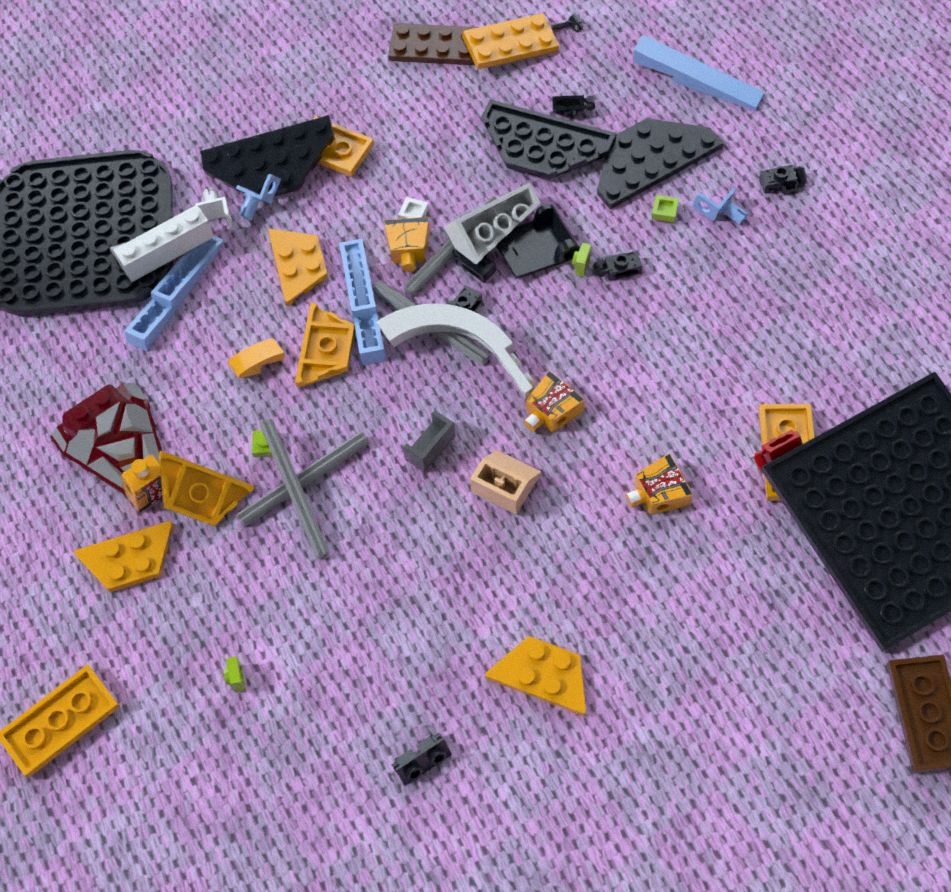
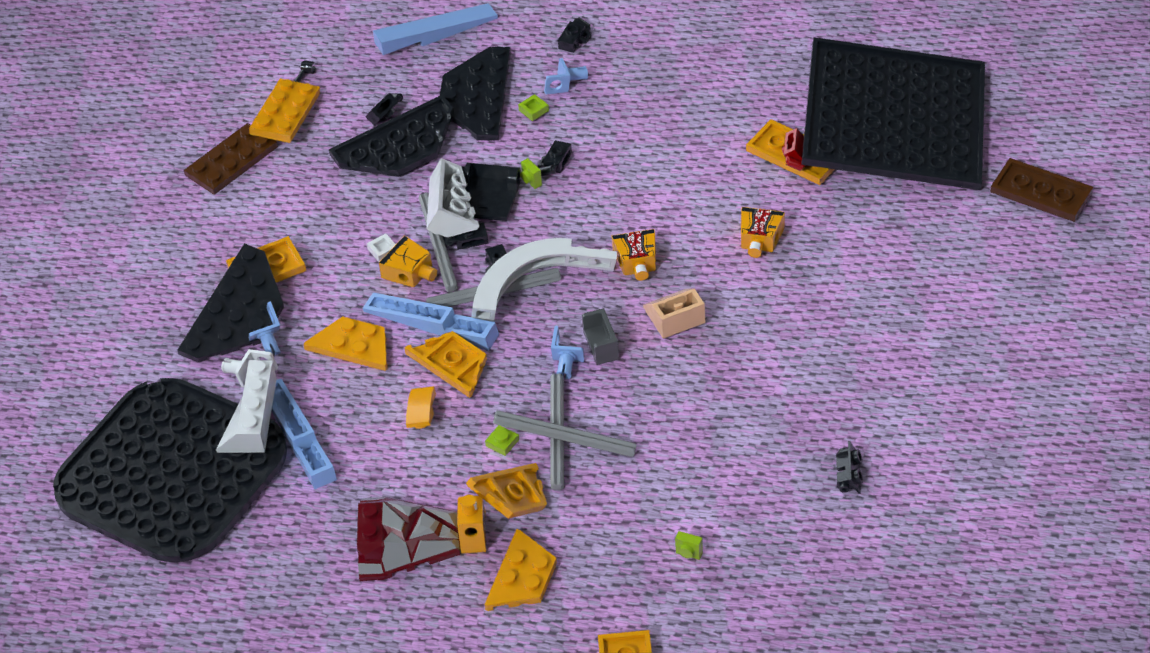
camera: 55 degrees left, 15 degrees down
(388, 429) = (565, 355): none -> light blue bracket
(543, 673) = (844, 370): light orange wing -> none

